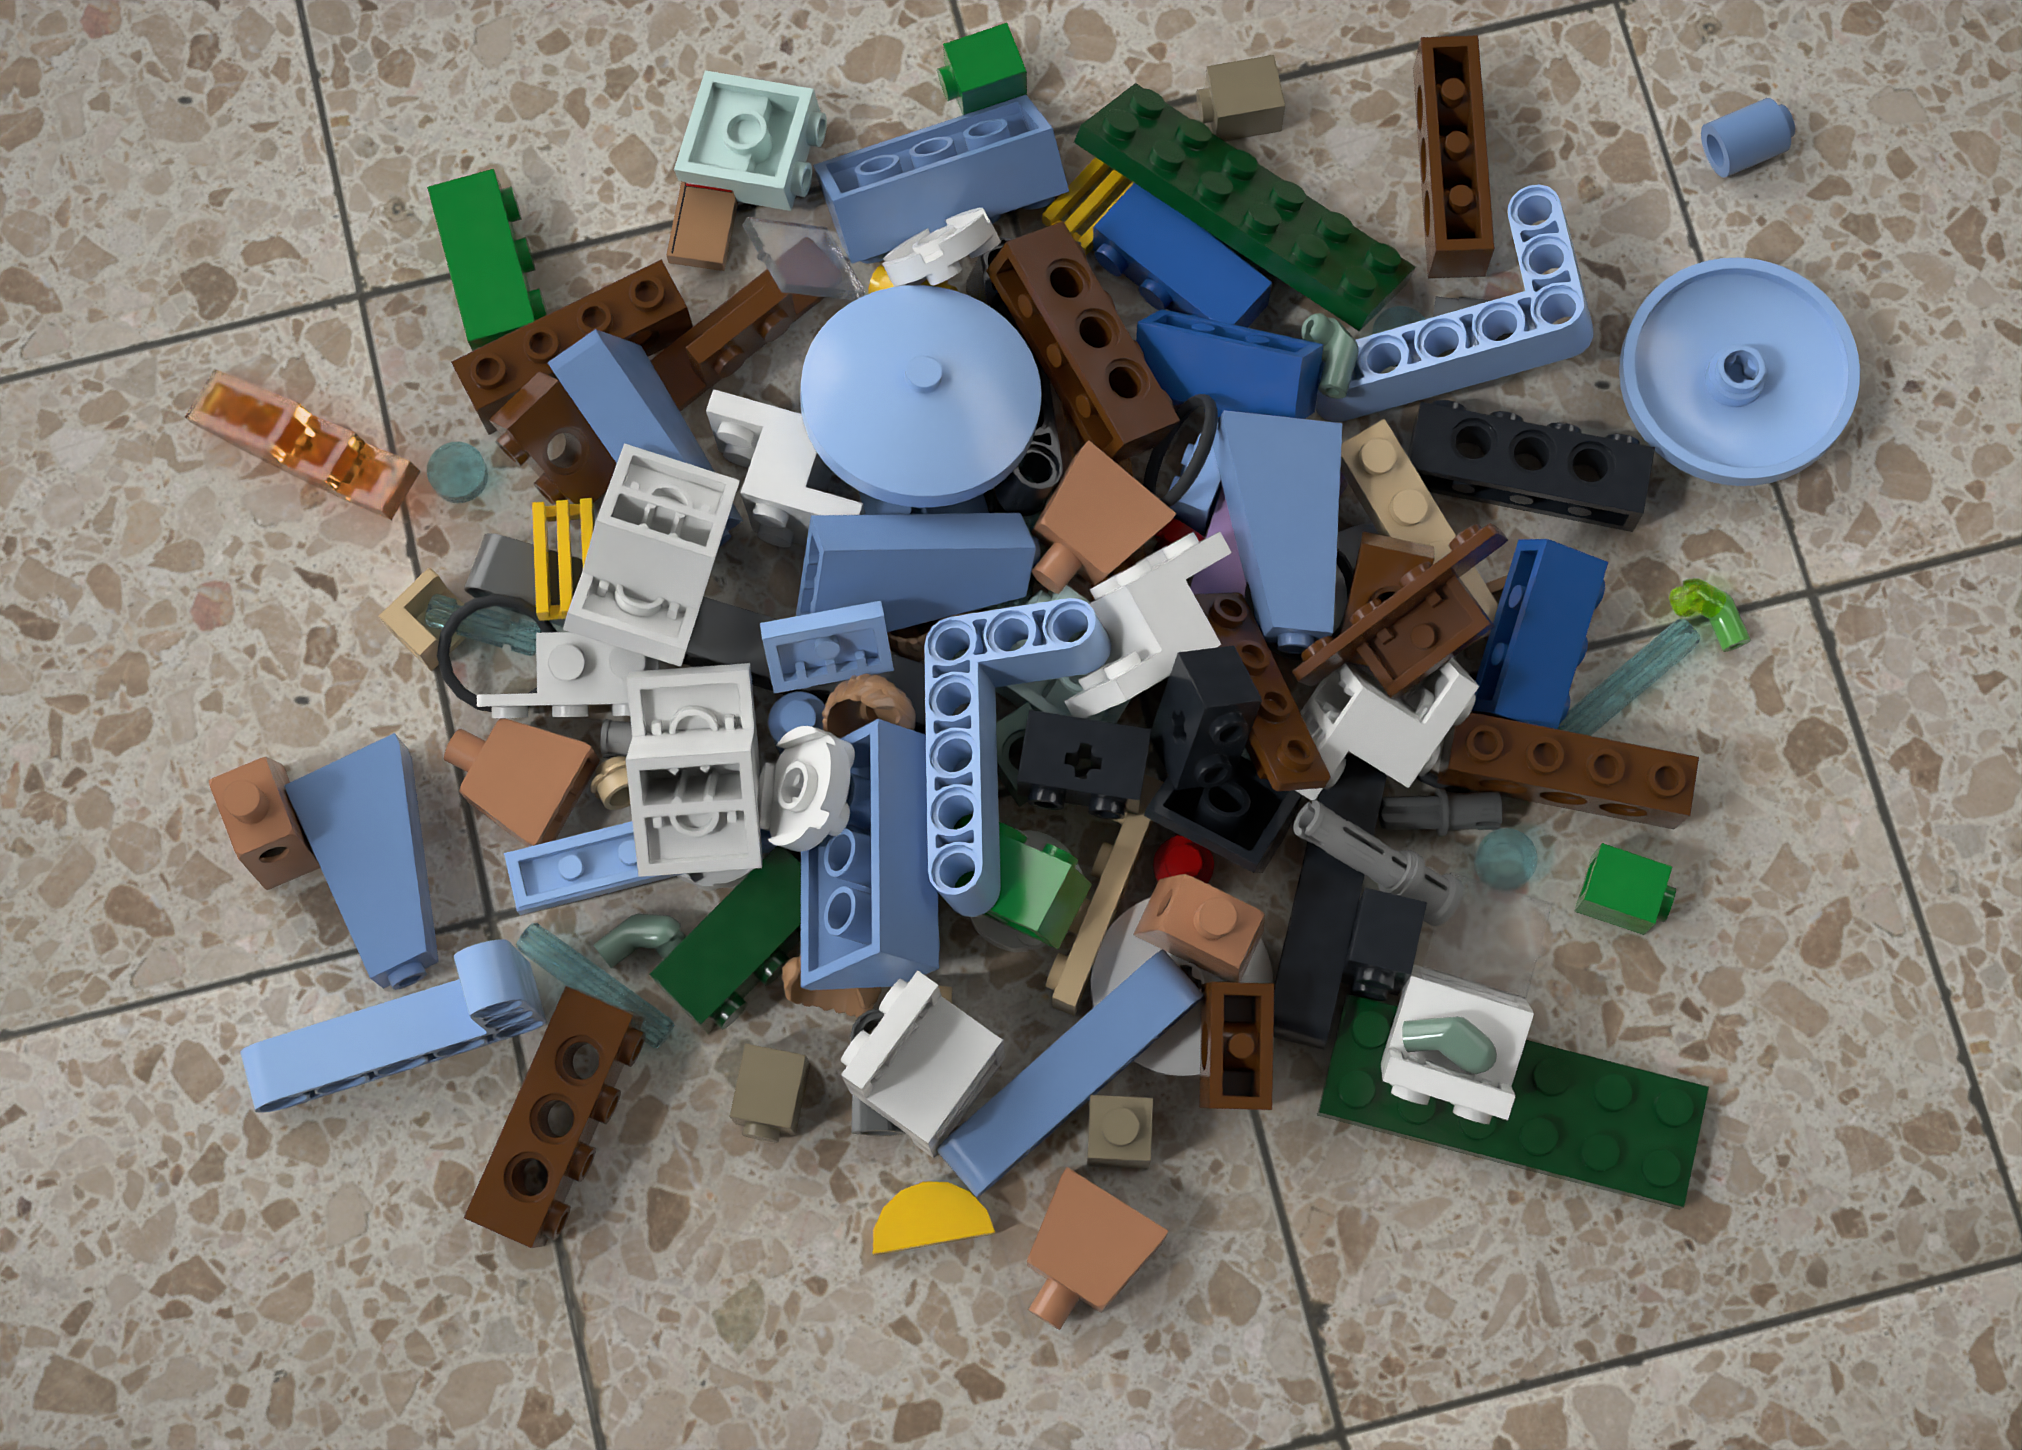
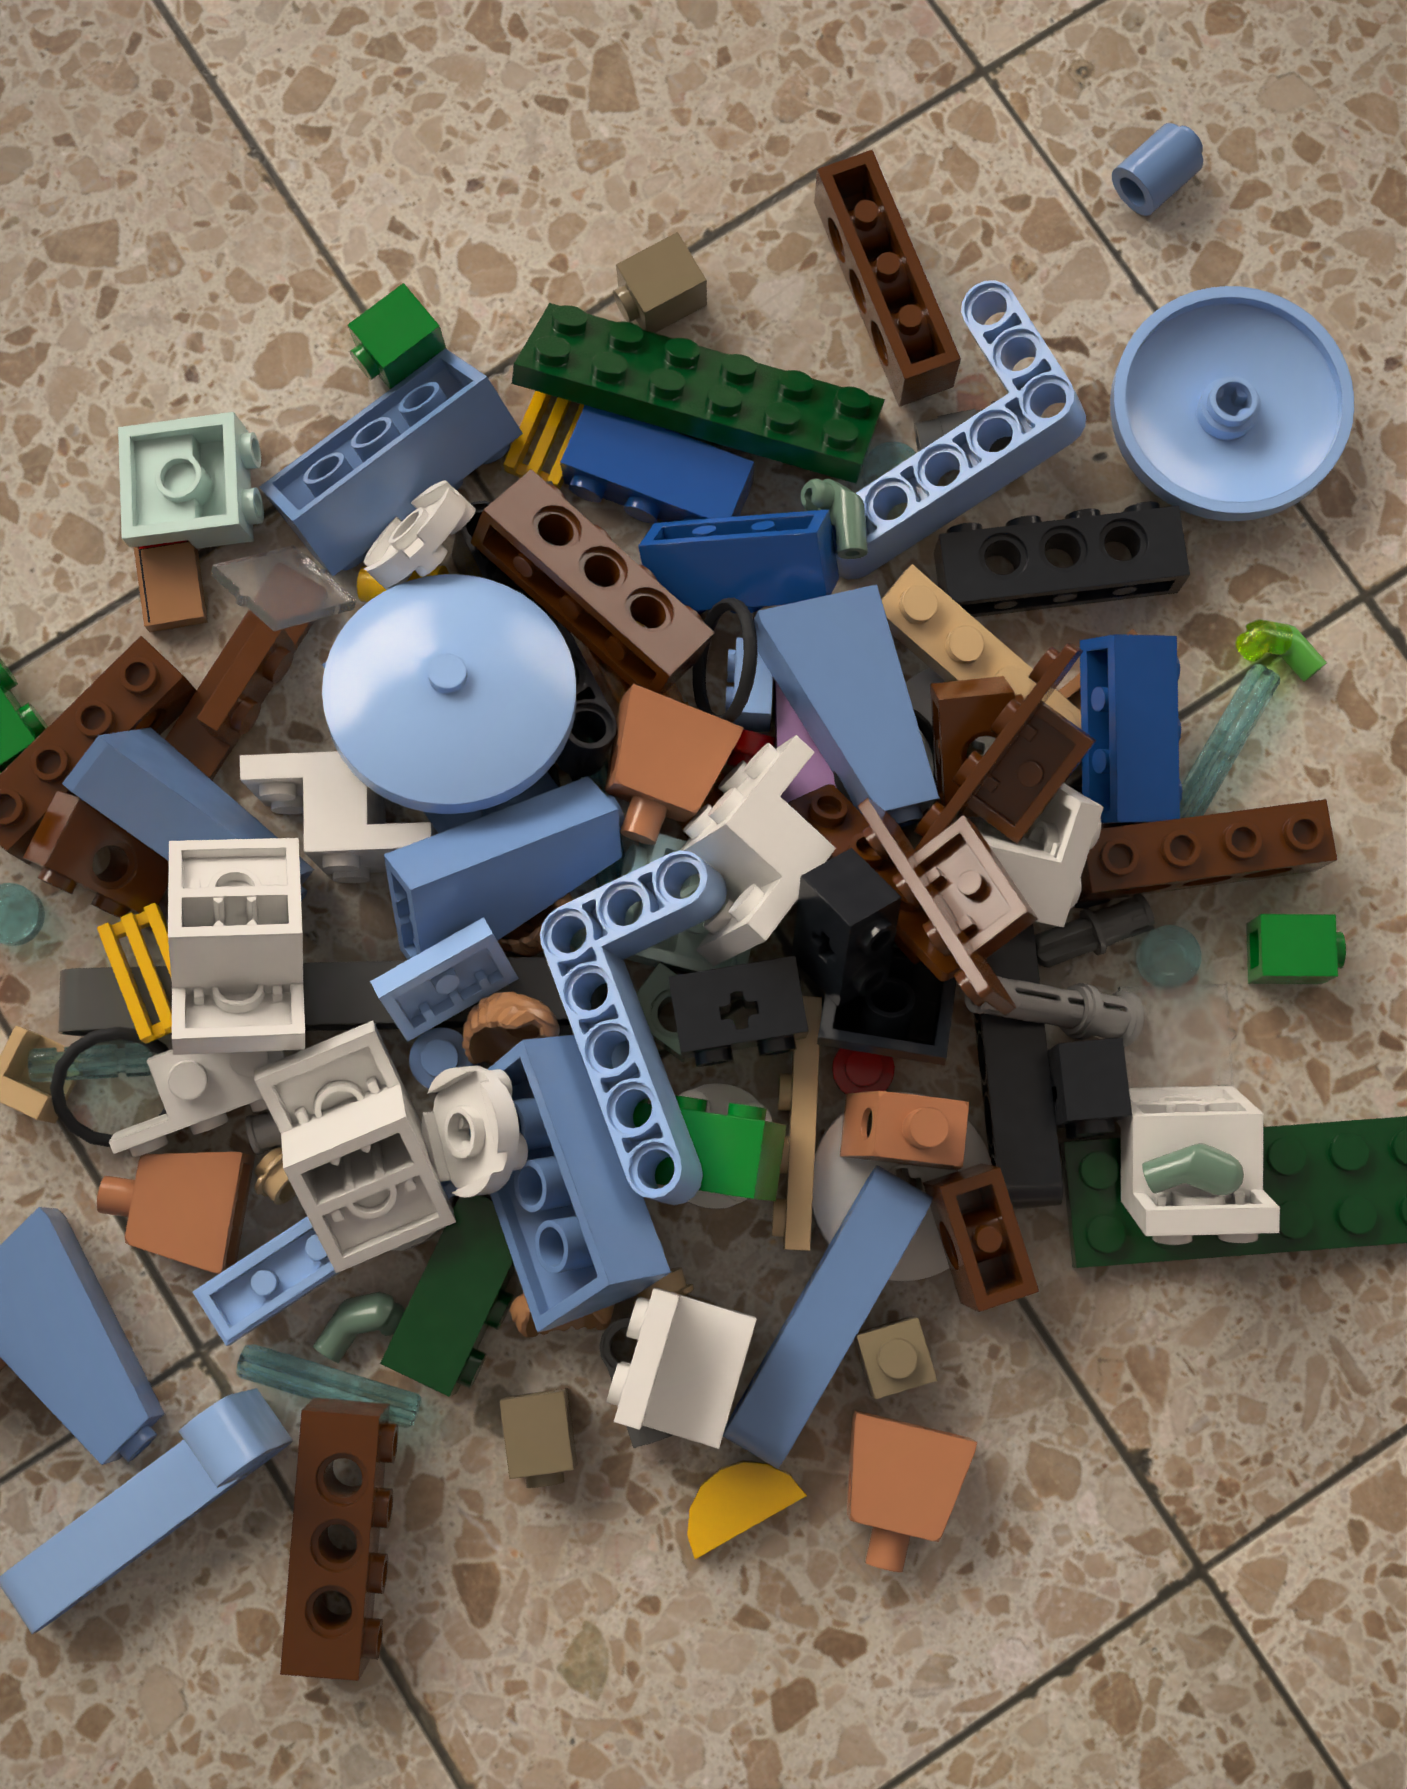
camera: 20 degrees left, 5 degrees up
(1318, 716) = (964, 894): none -> bracket

